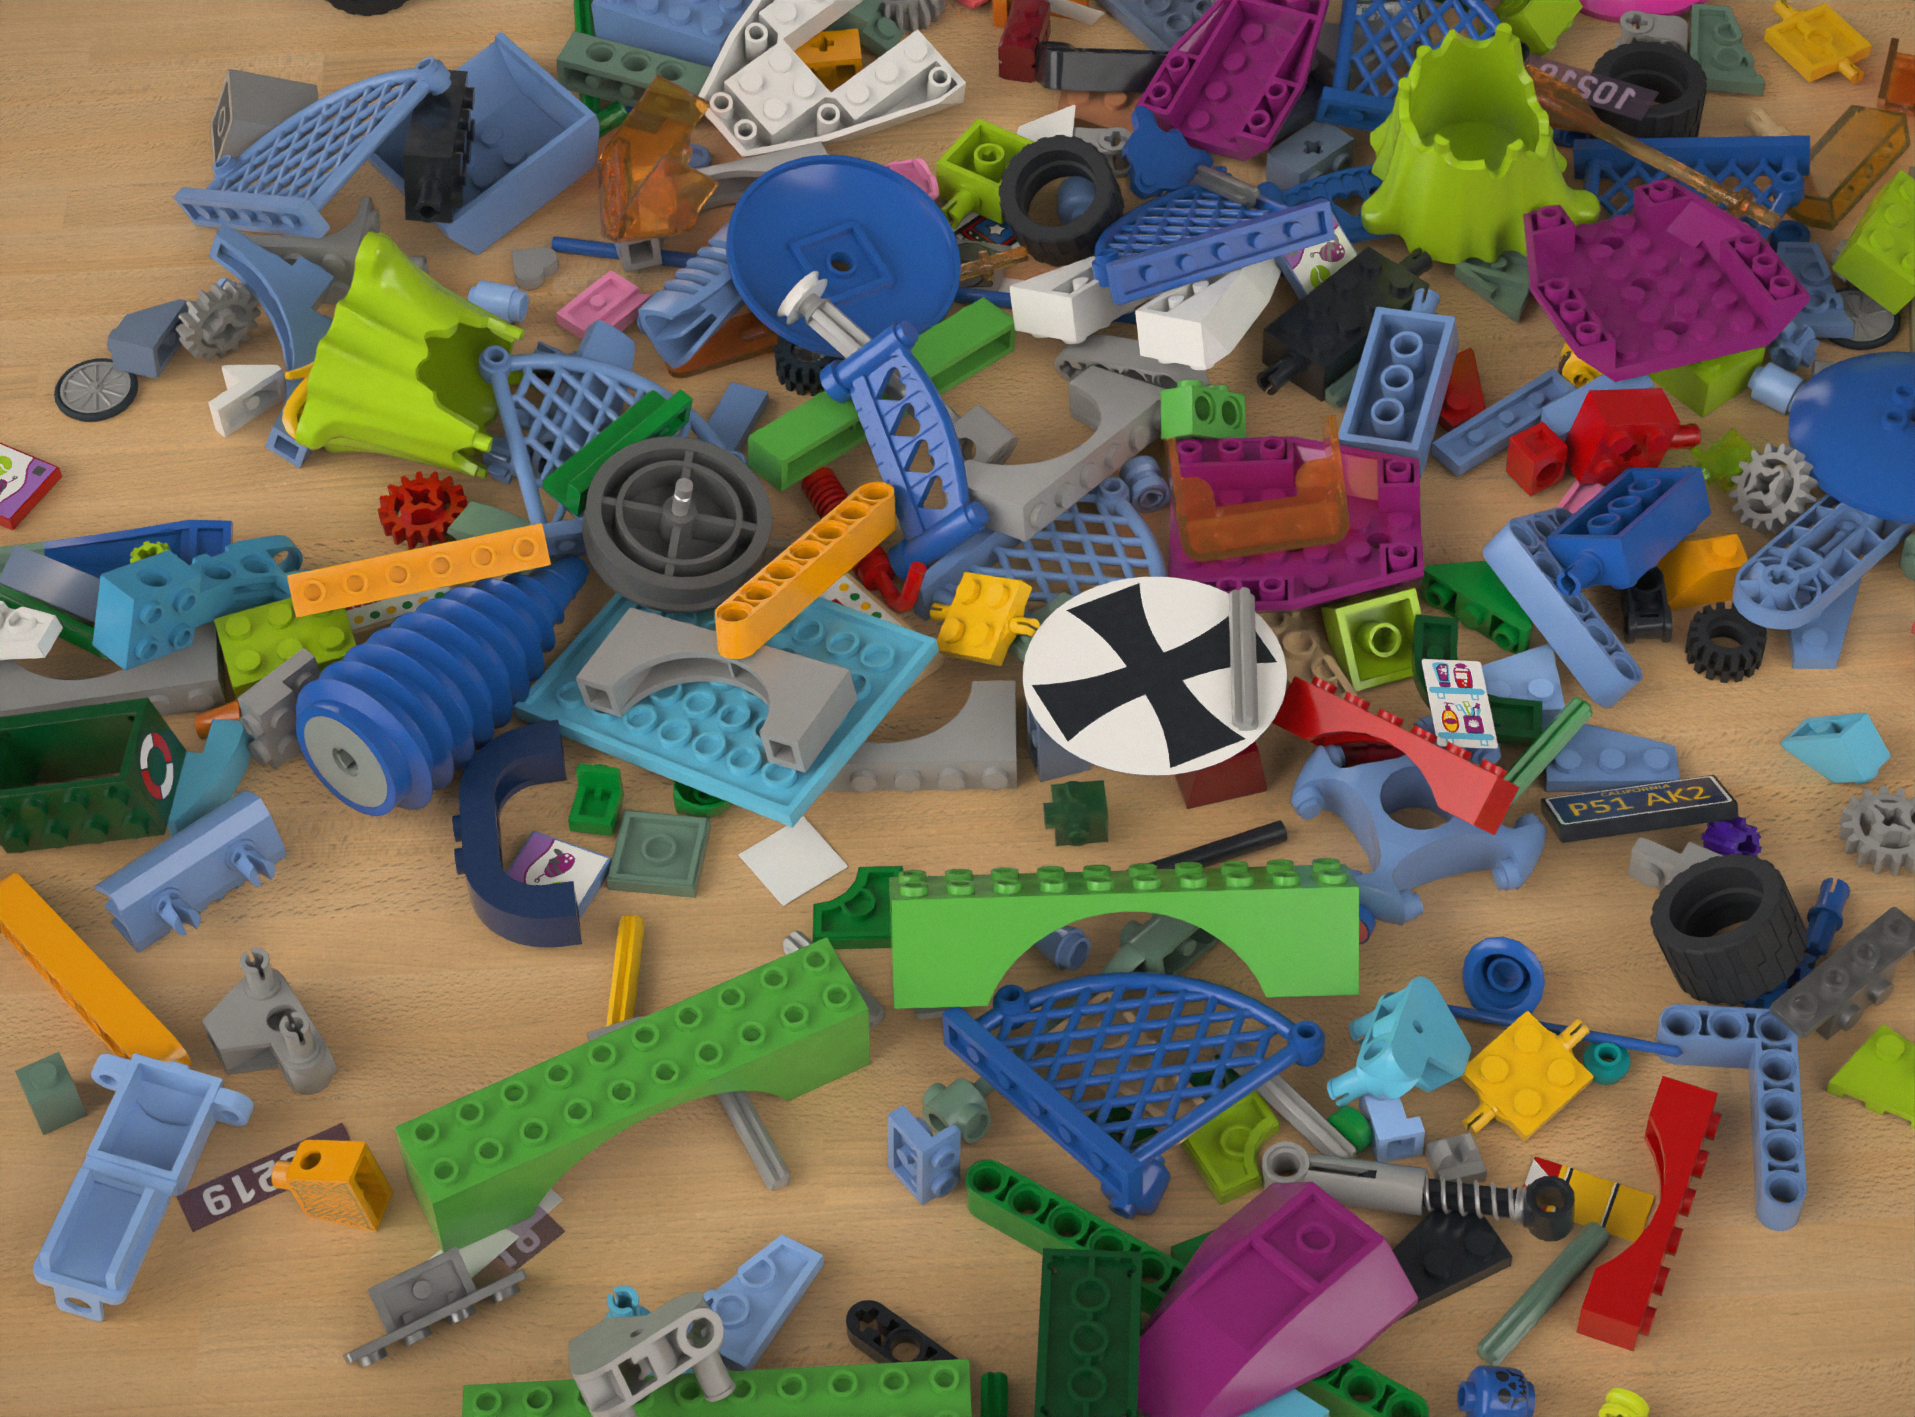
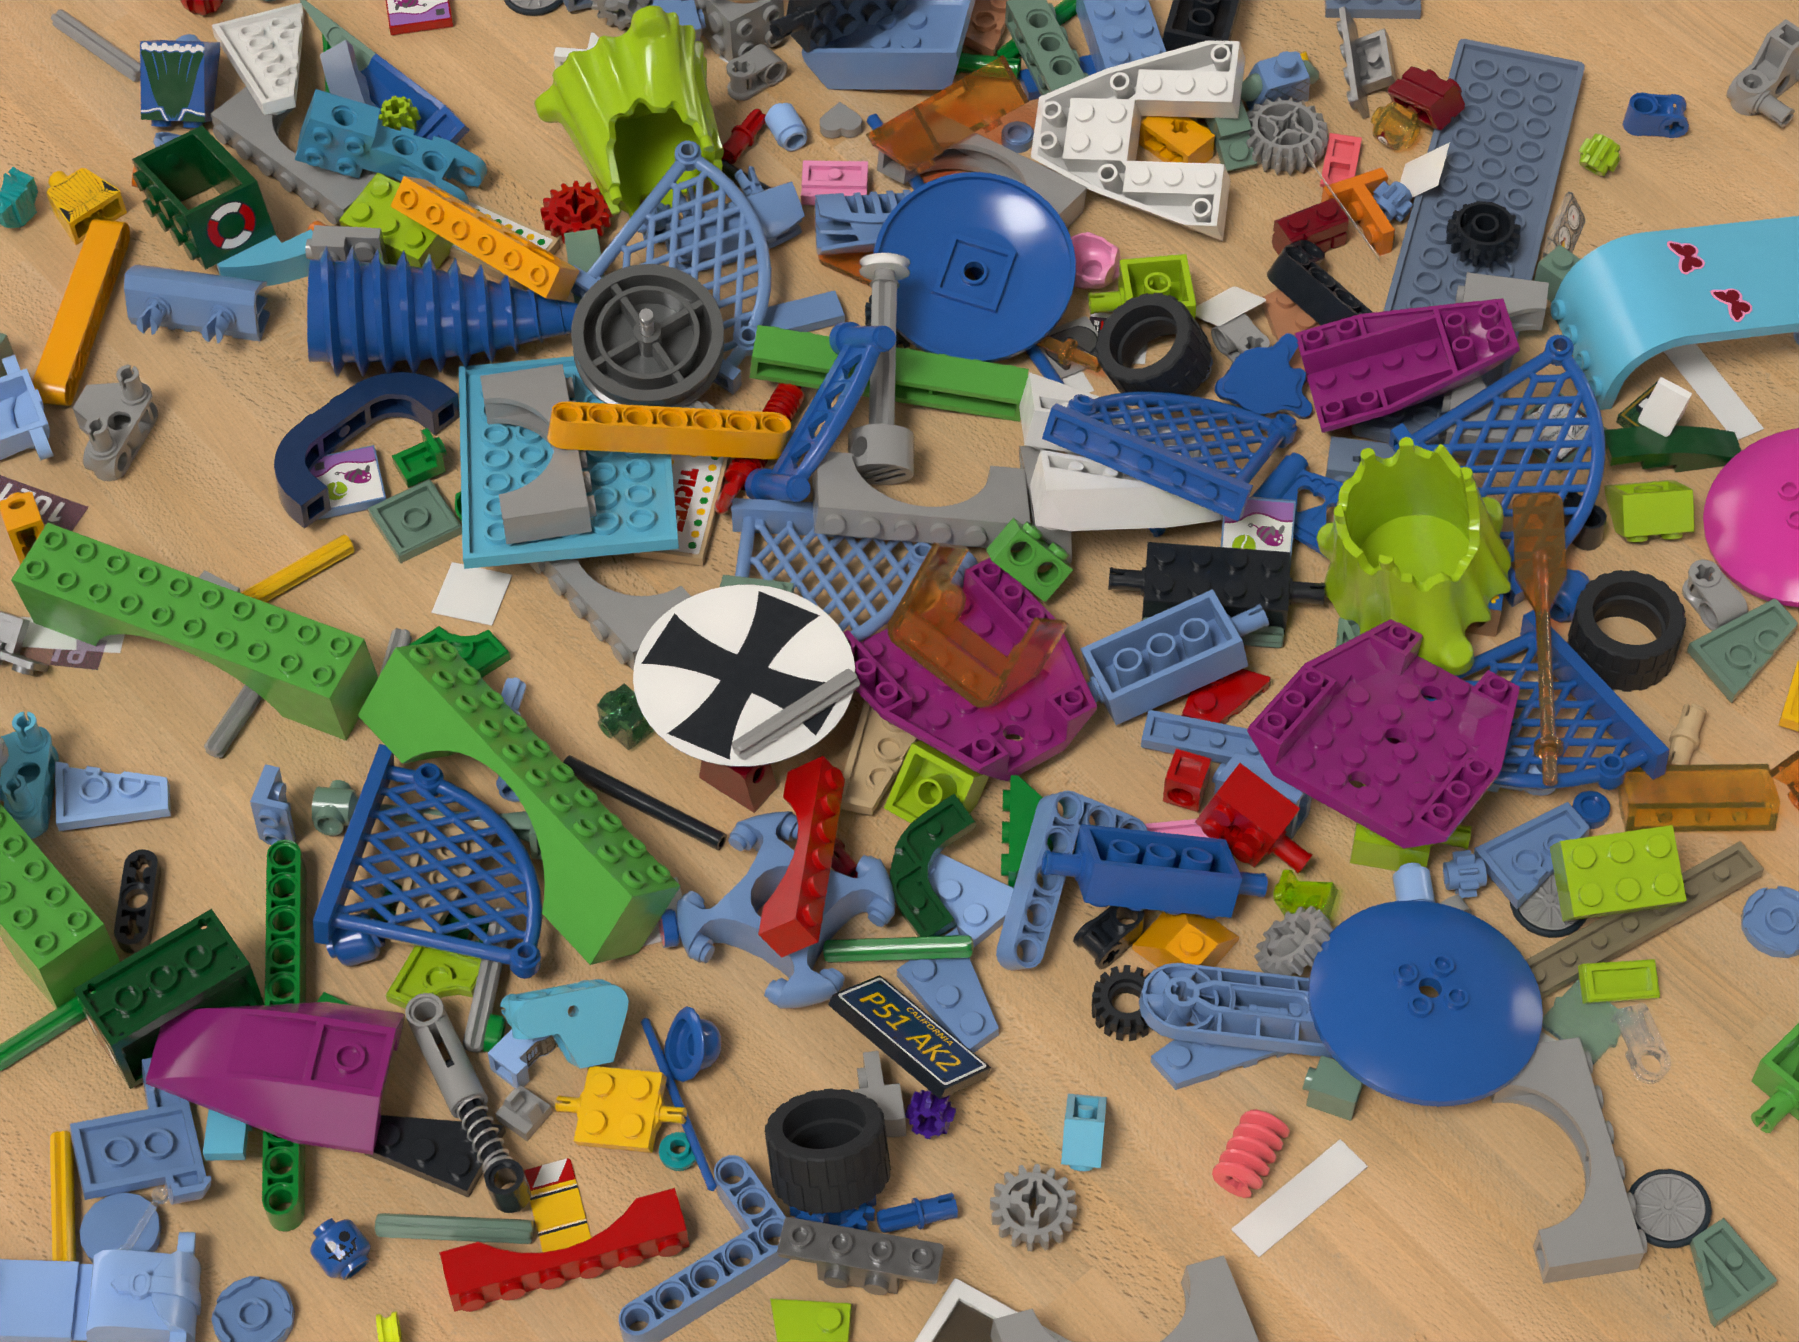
camera: 50 degrees right, 5 degrees up
(646, 419) = (709, 266): green panel -> none
(983, 618) = (725, 556): yellow plate -> none
(1227, 186) = (1254, 432): dark grey axle -> none
(1459, 703) = (895, 868): sticker -> none
(1599, 89) = (1582, 585): sticker -> none

